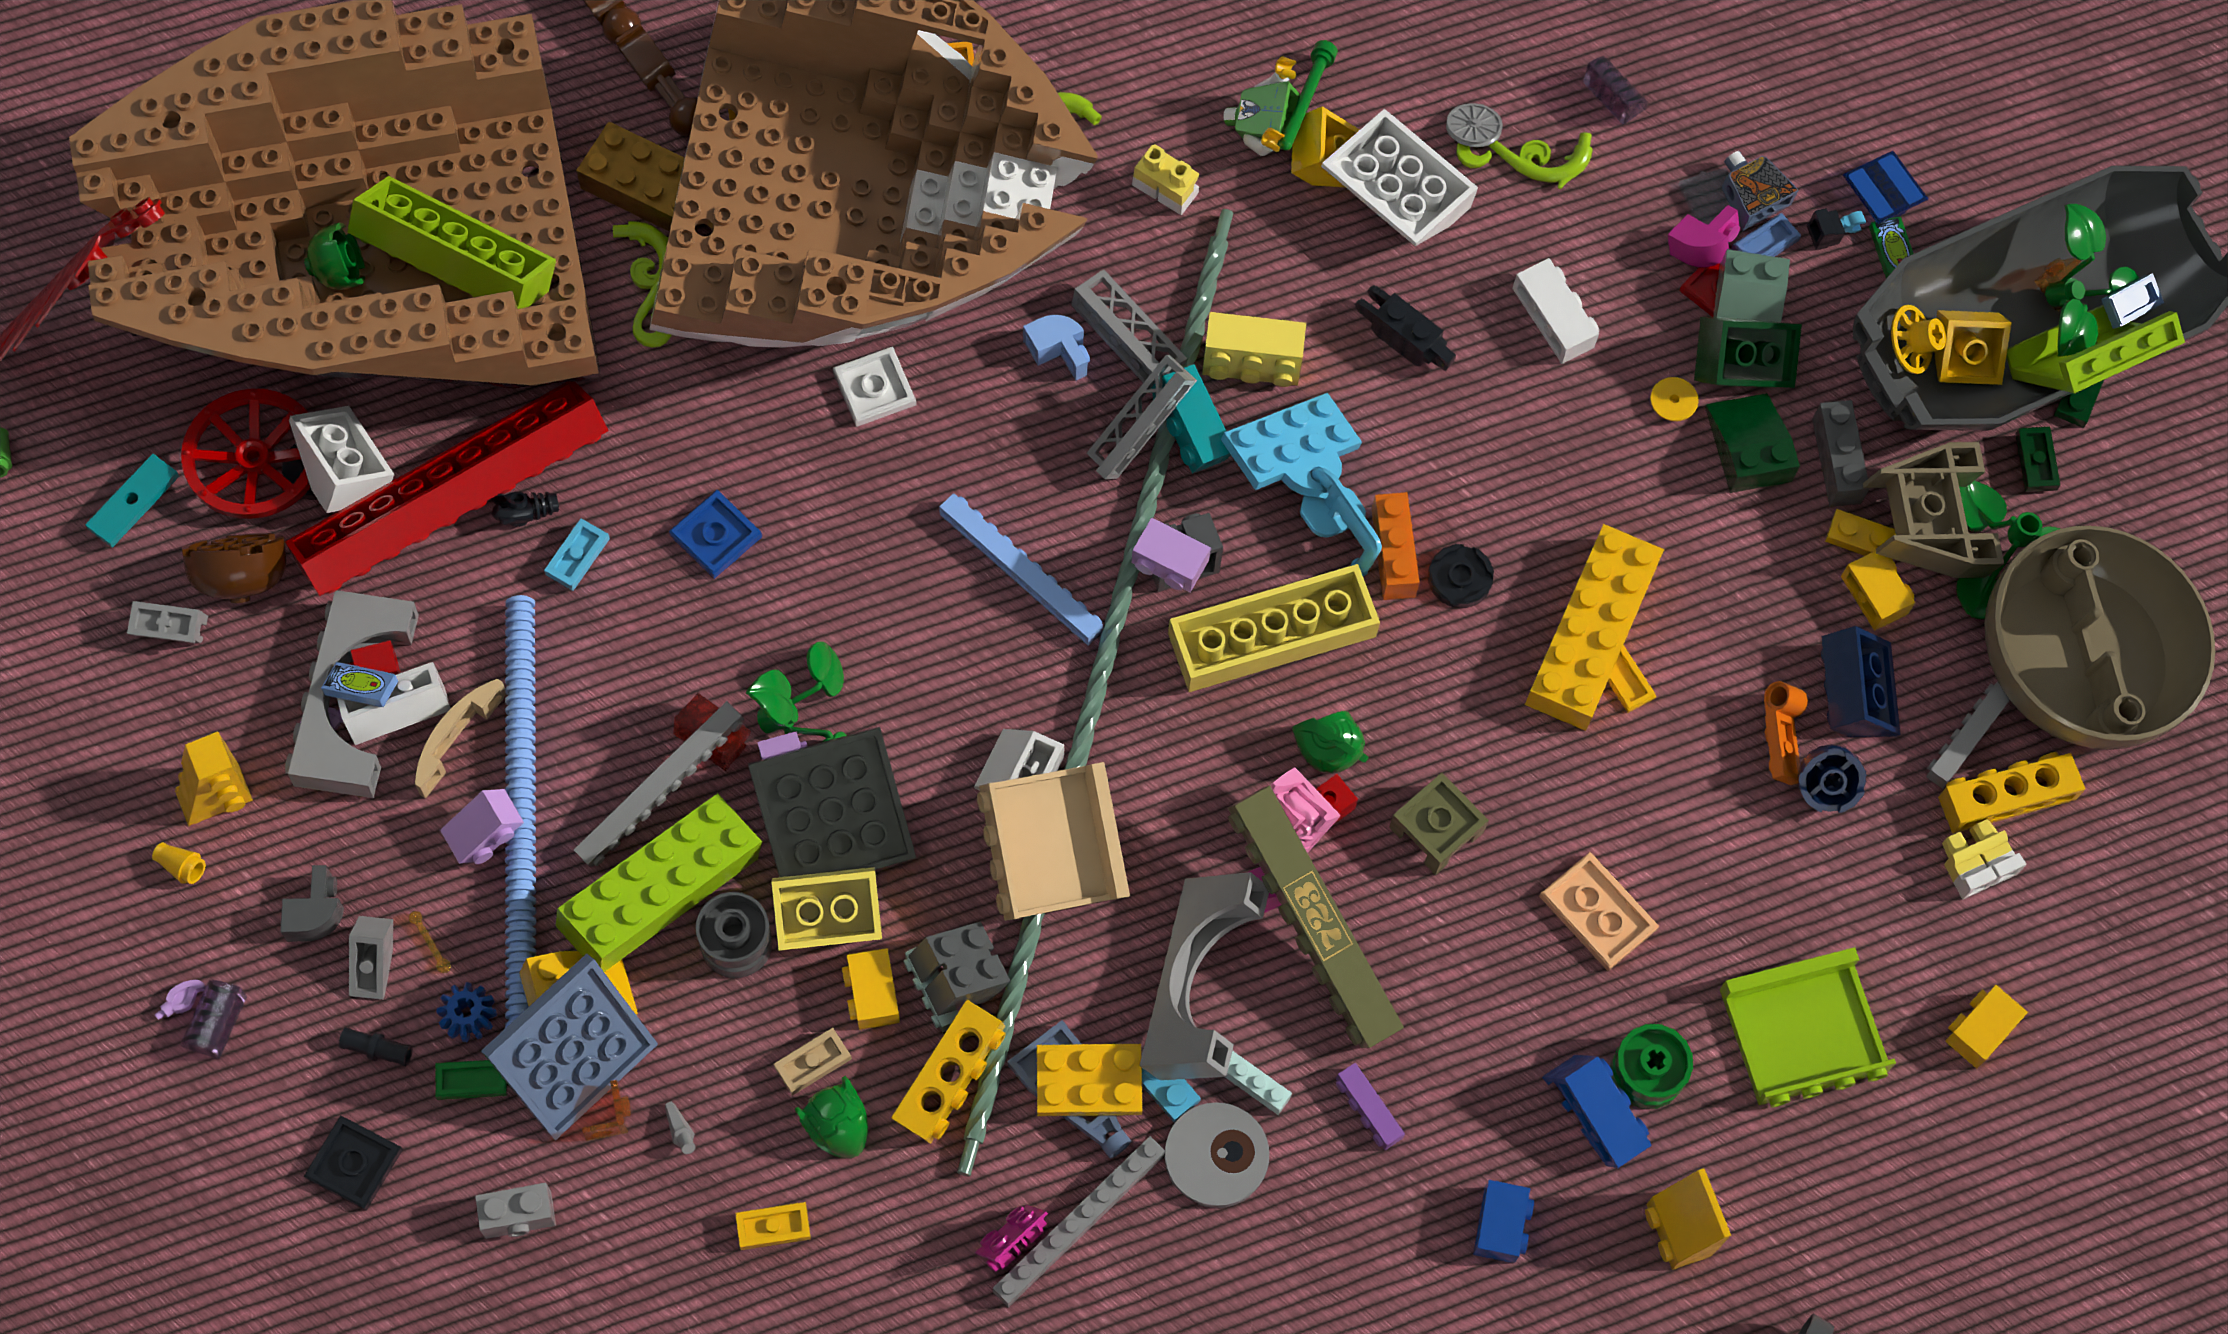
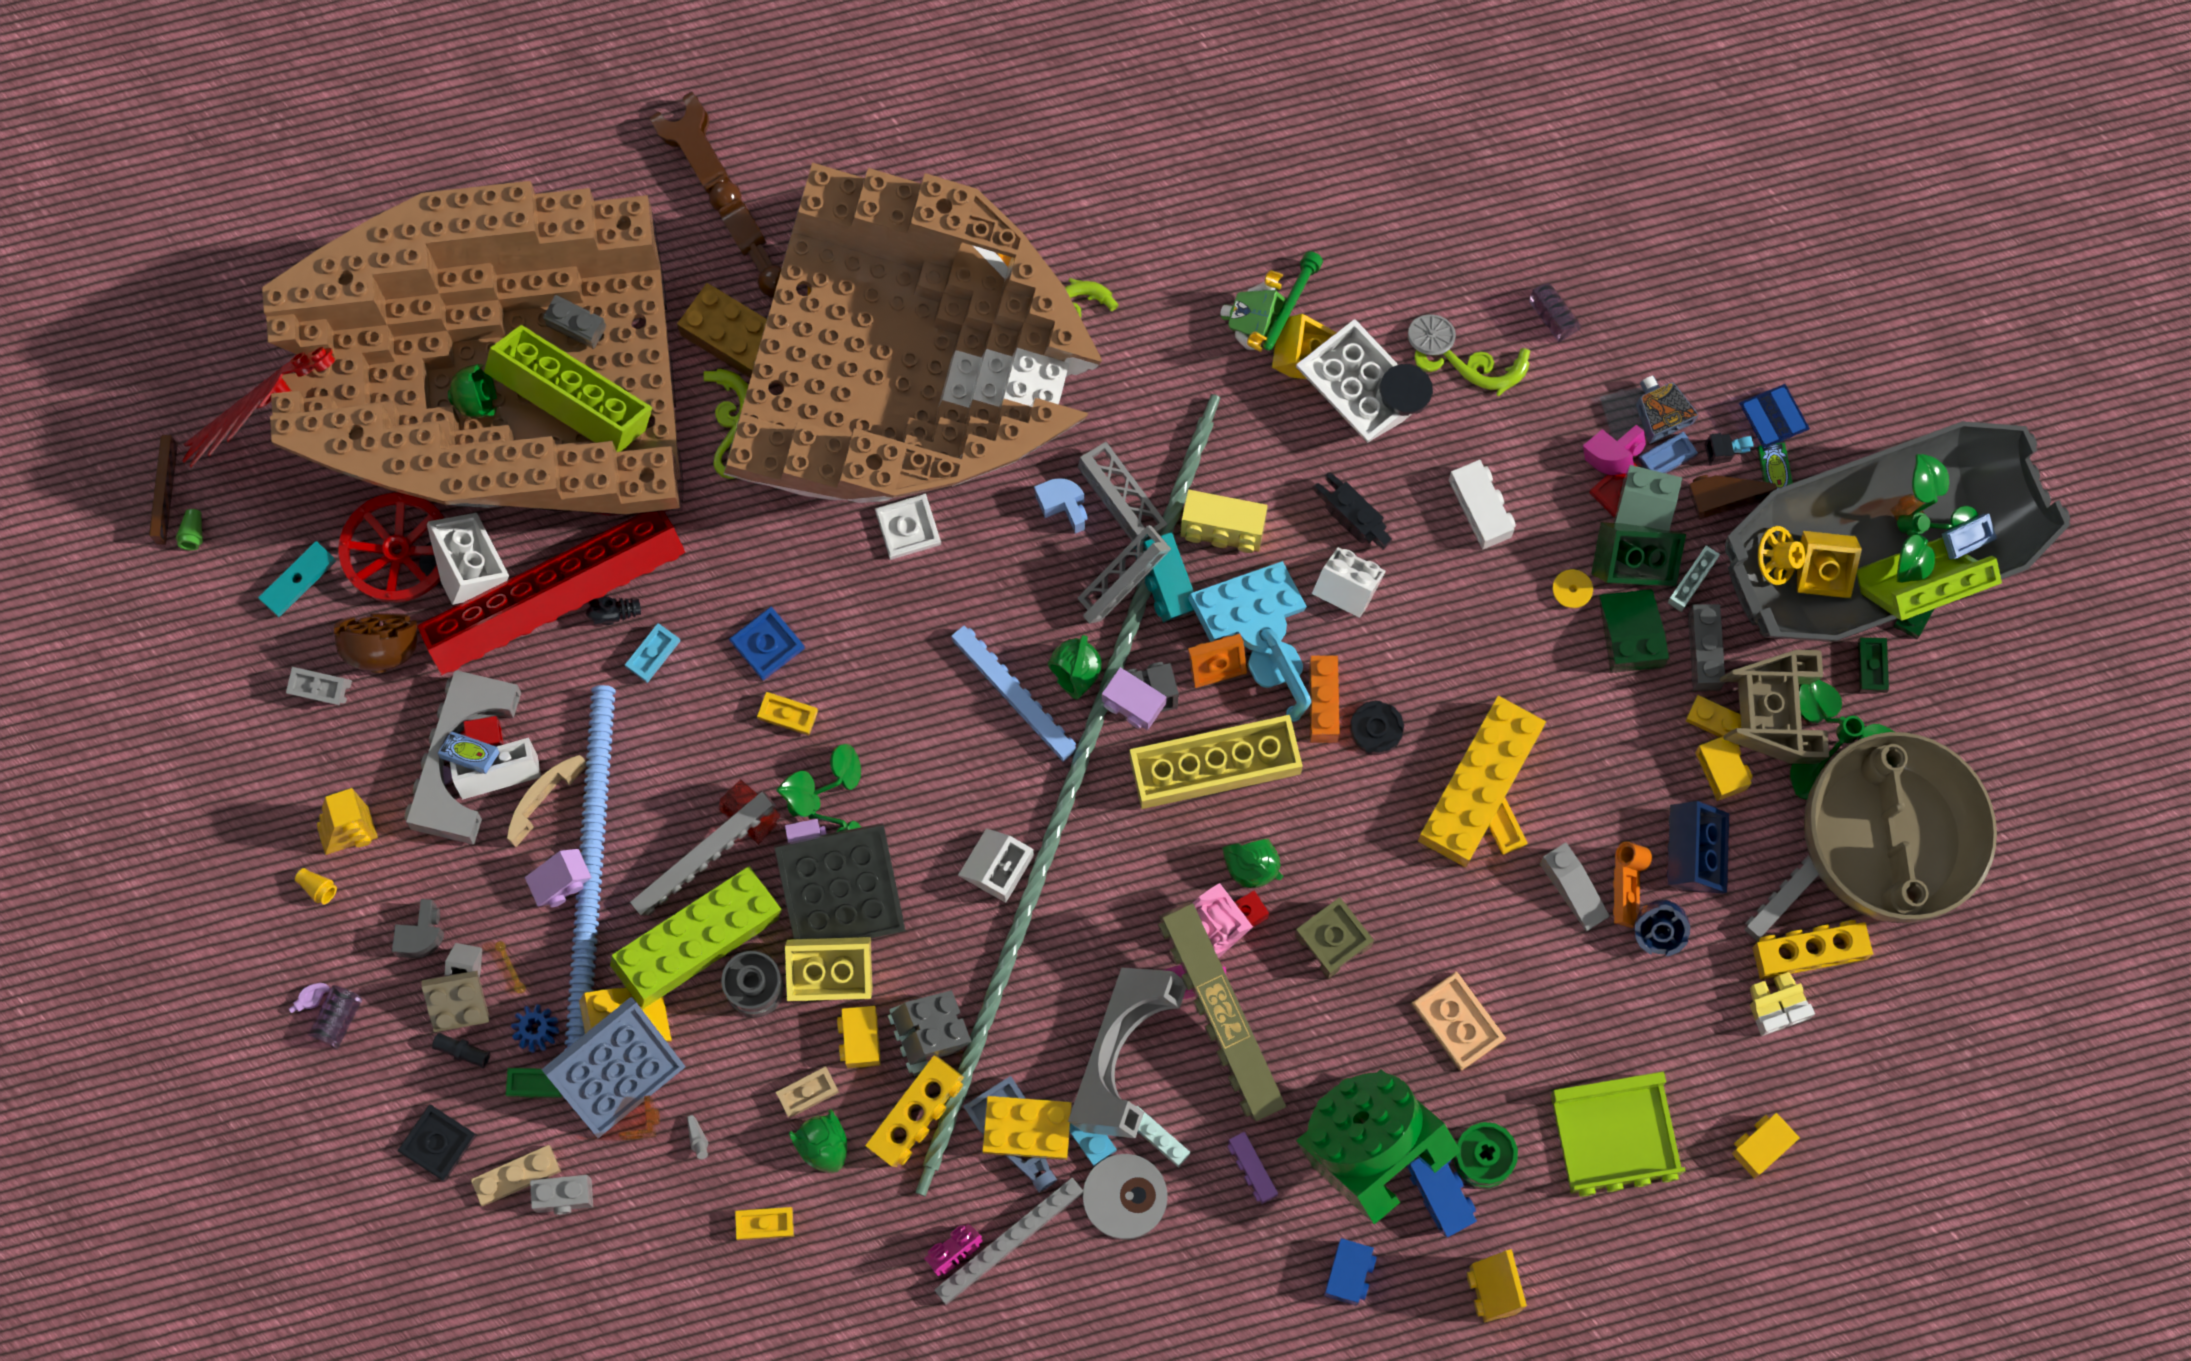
camera: 10 degrees right, 5 degrees up
(364, 986) = (455, 1001): none -> dark tan plate
(453, 170) = (574, 321): none -> dark grey brick
(454, 1194) = (515, 1175): none -> tan plate
(748, 613) = (787, 713): none -> yellow plate
(1053, 841) = (1016, 929): tan panel -> none
(1093, 529) = (1075, 665): none -> green helmet
(1166, 178) = (1167, 365): light yellow hips -> none
(1263, 509) = (1217, 660): none -> orange plate
(1409, 409) = (1348, 581): none -> white slope
(1454, 182) = (1406, 389): none -> black tile
(1511, 1048) = (1368, 1134): none -> green piece
(1718, 739) = (1574, 886): none -> light grey slope
(1815, 376) = (1693, 578): none -> light aqua piece
(1839, 277) = (1722, 493): none -> reddish brown slope

